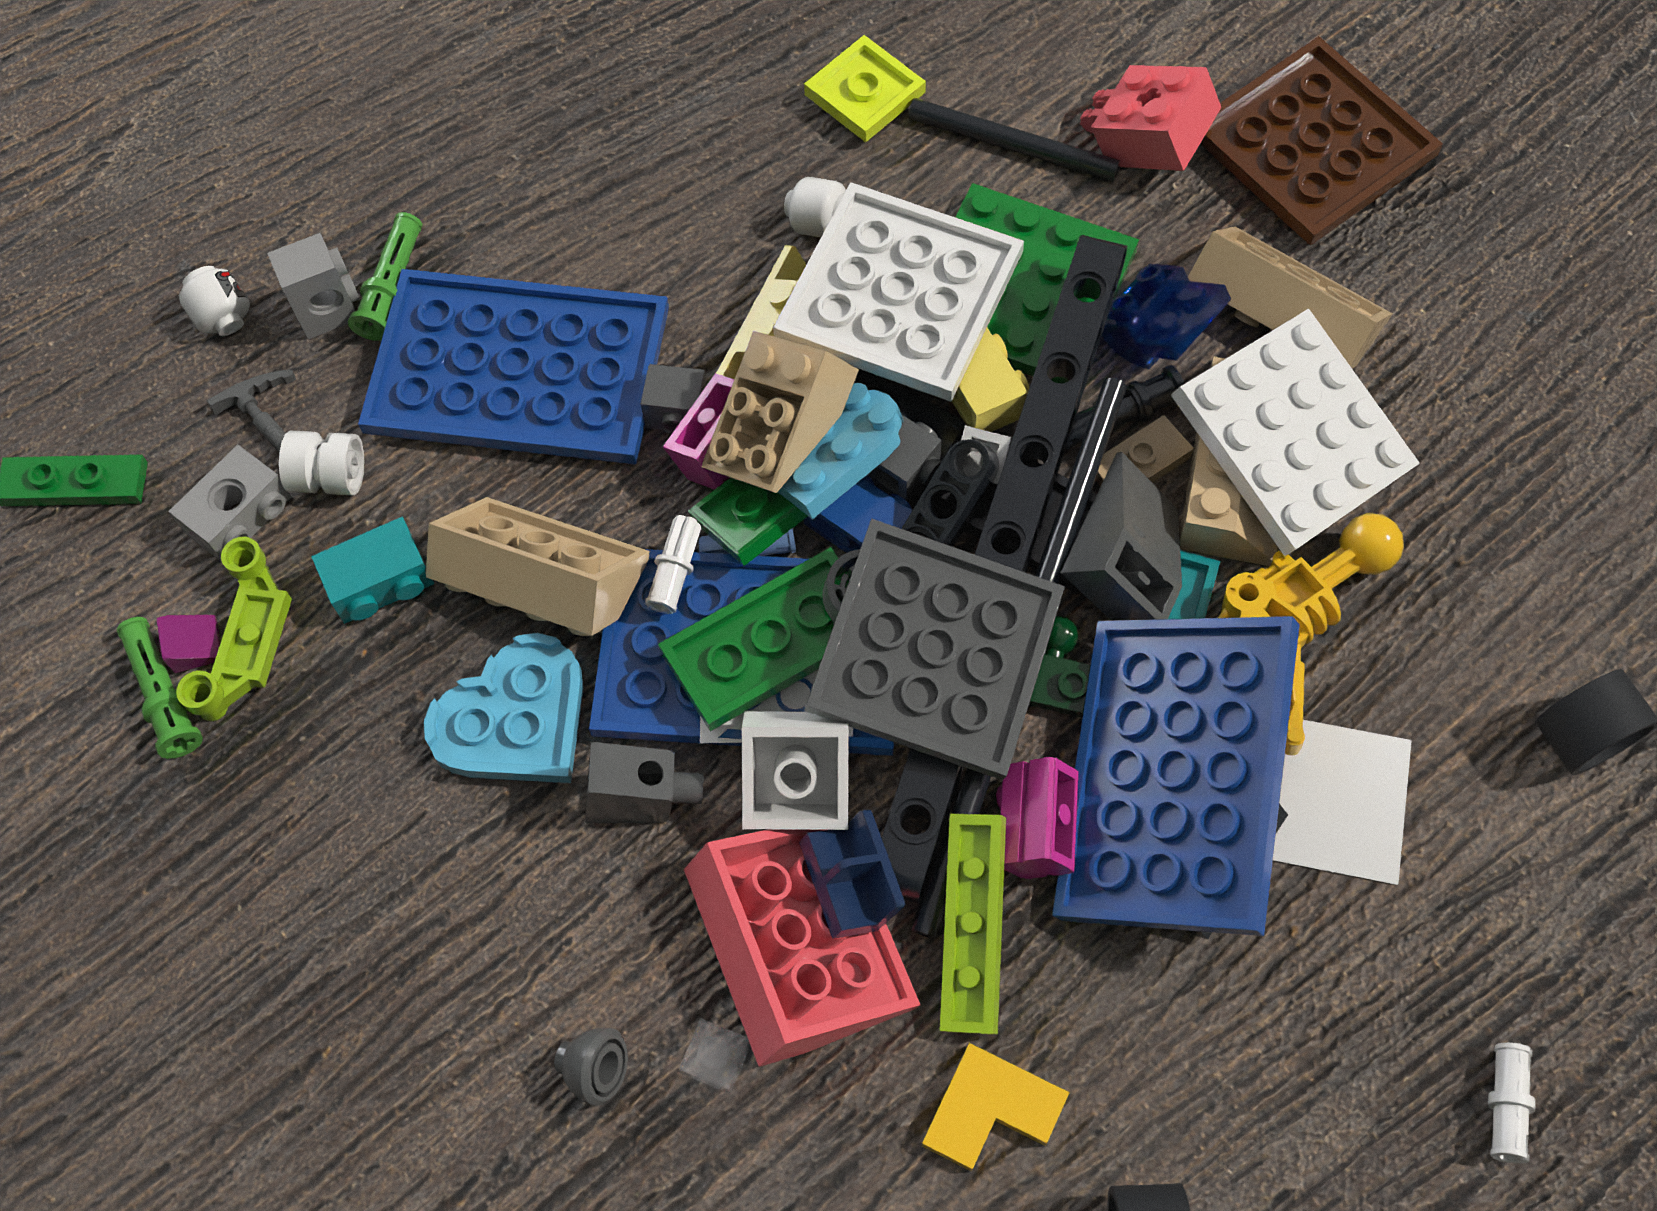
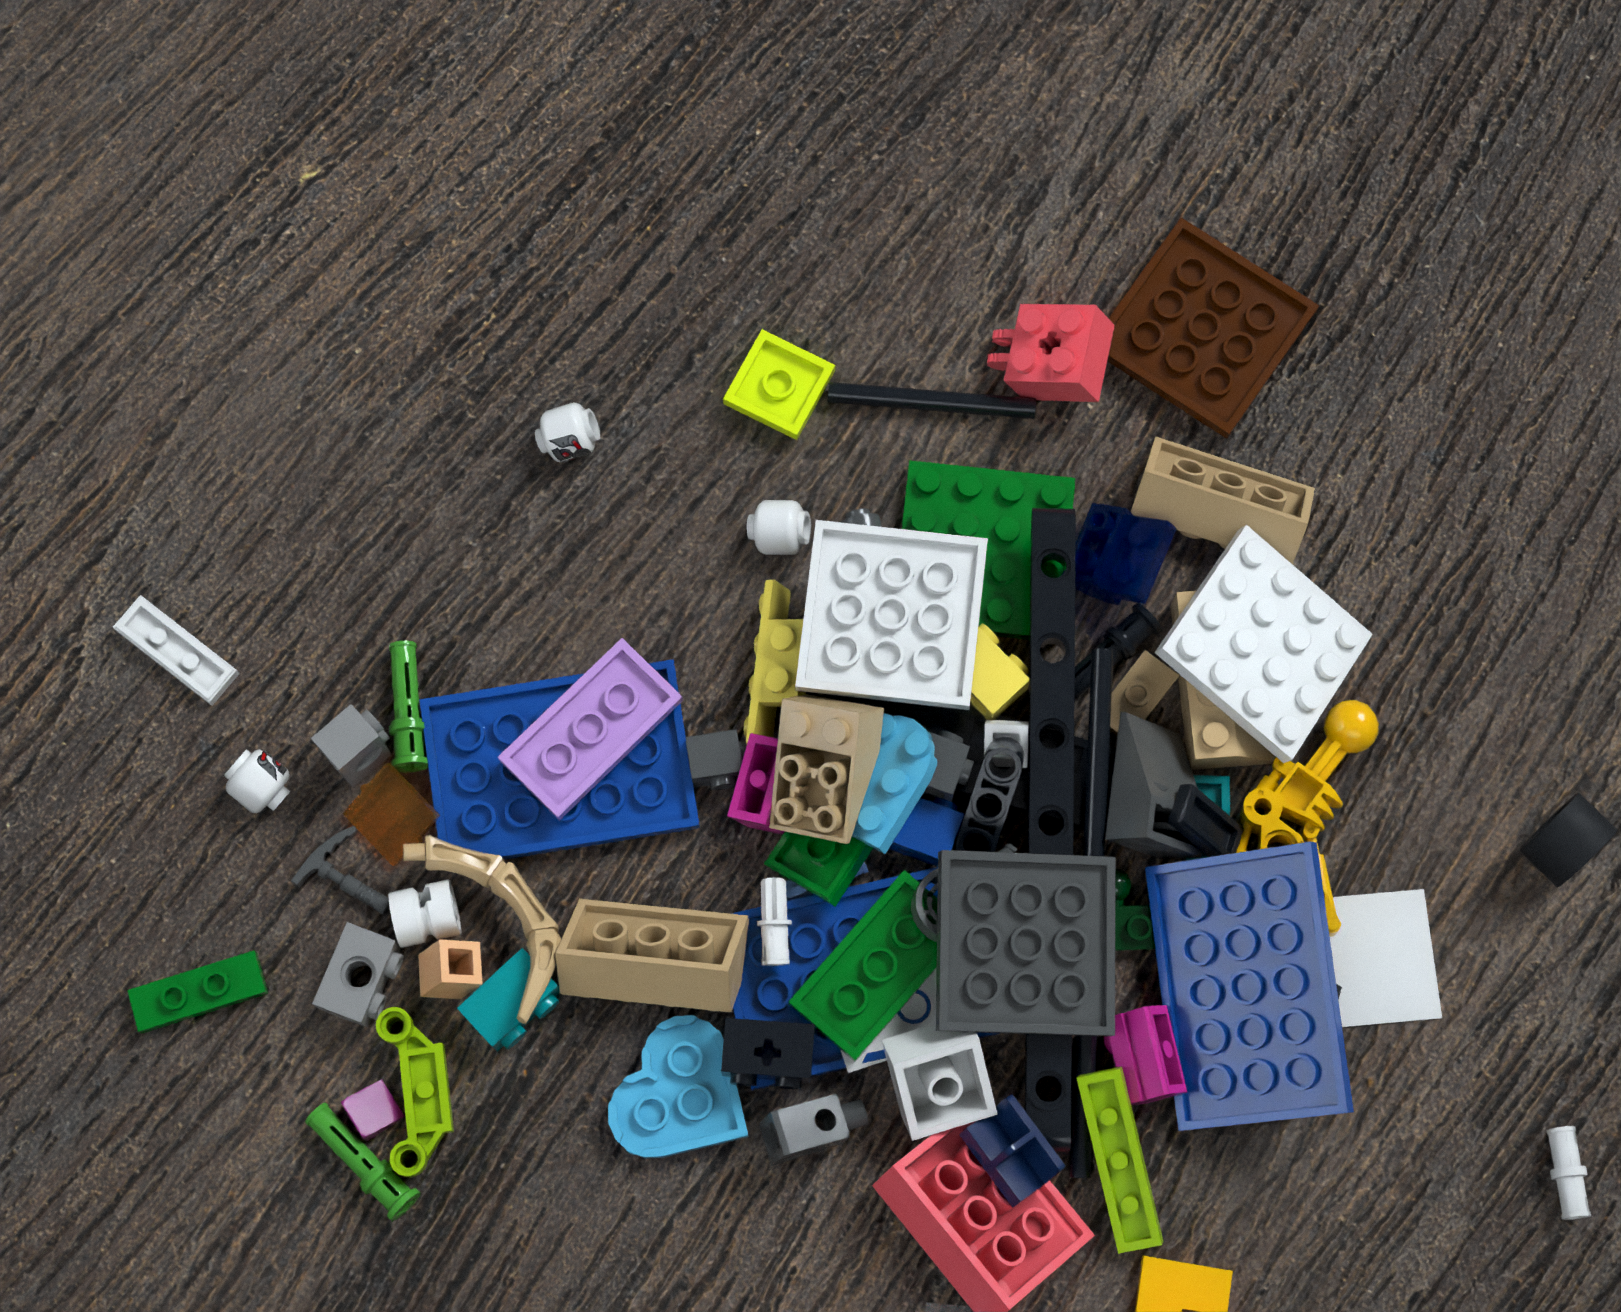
camera: 20 degrees left, 10 degrees up
(195, 176) = (176, 650): none -> white tile
(322, 518) = (450, 969): none -> light nougat brick
(330, 366) = (391, 813): none -> clear orange piece
(413, 452) = (509, 885): none -> tan animal
(555, 332) = (590, 729): none -> lavender plate
(603, 669) = (748, 1036): none -> black brick
(642, 77) = (567, 432): none -> white head
(1175, 582) = (1204, 822): none -> black tile

